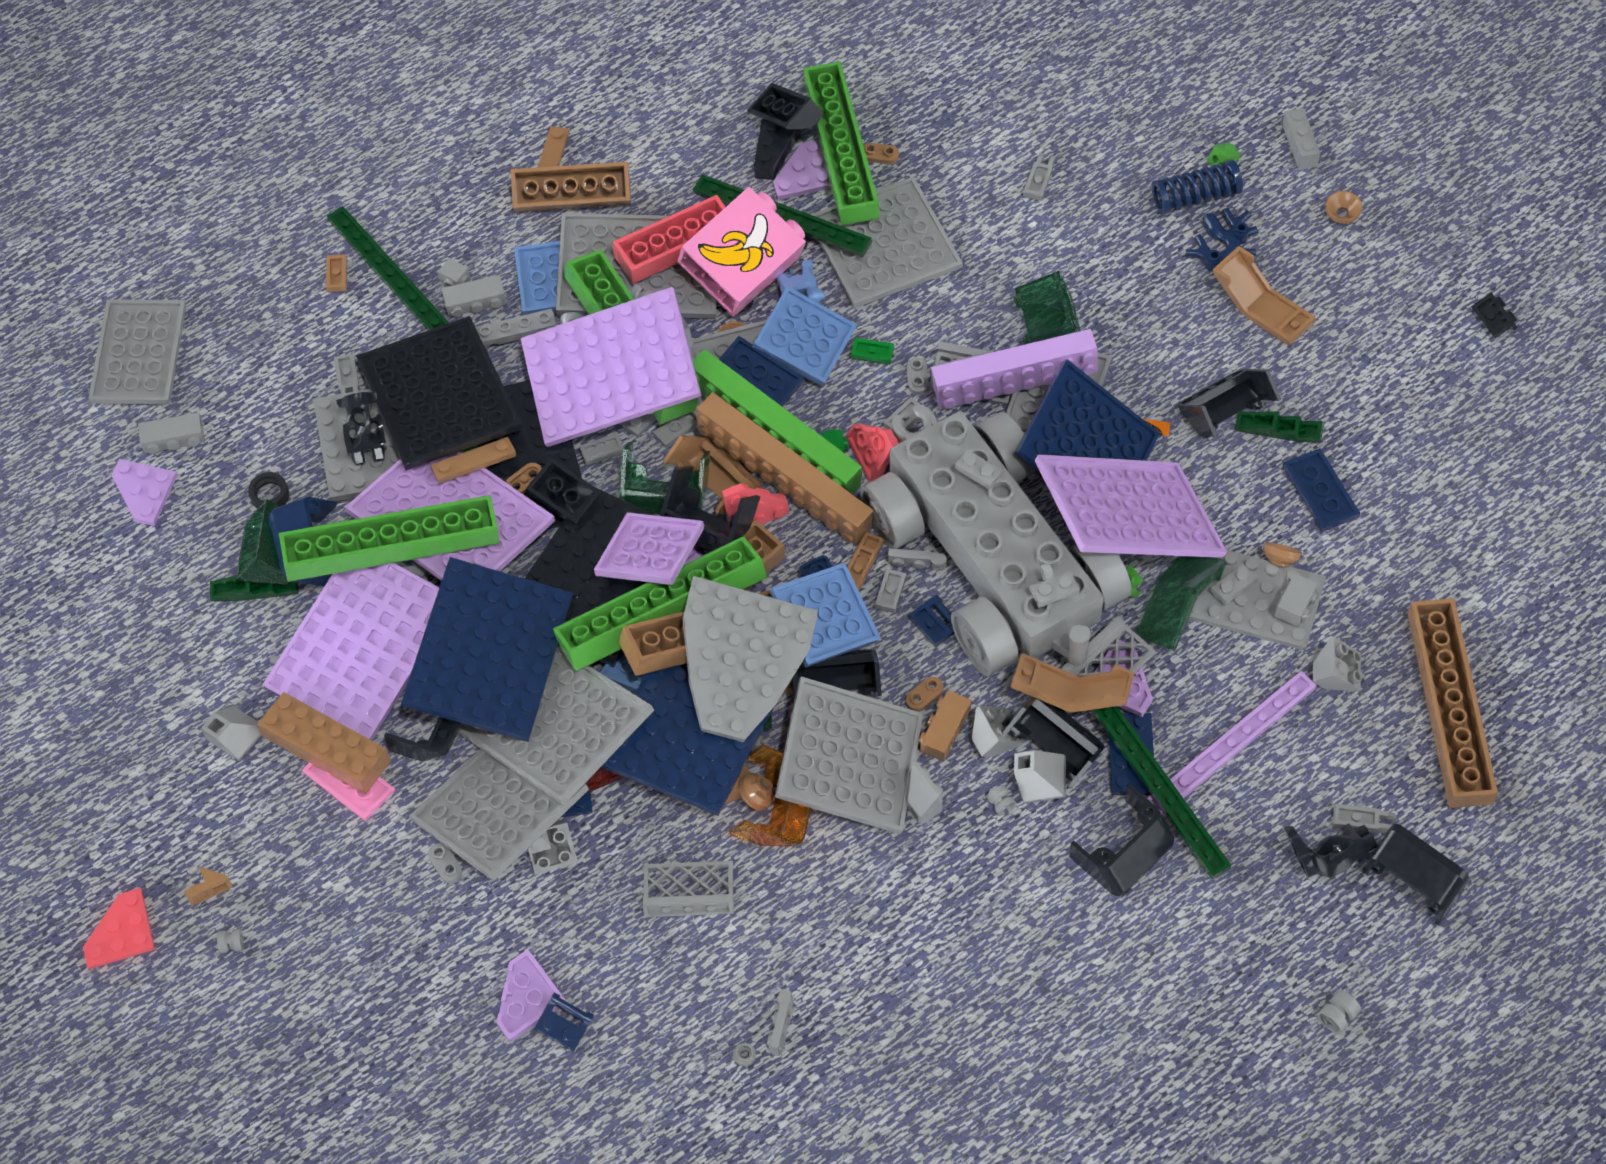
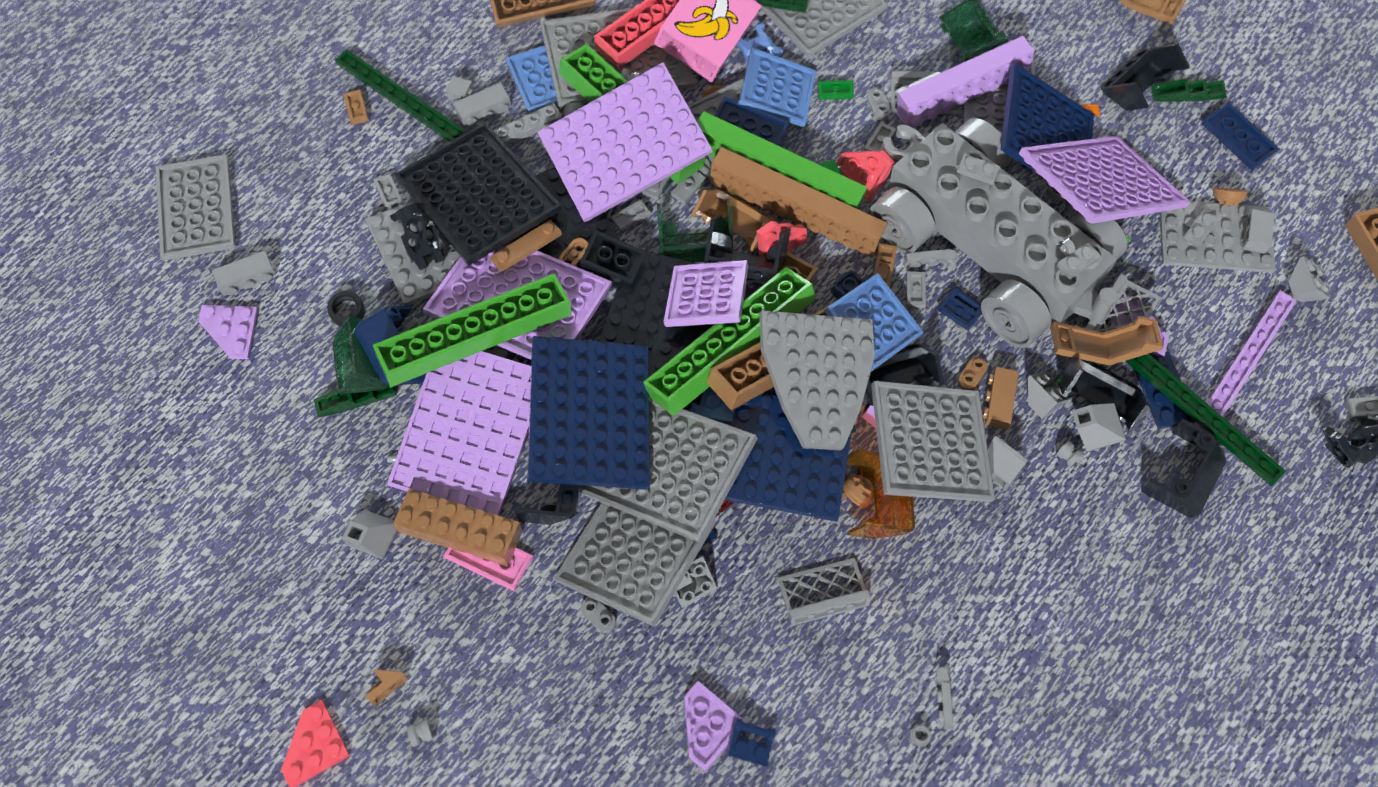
camera: 15 degrees left, 5 degrees up
(1176, 597) = (1161, 250): clear green windscreen -> none

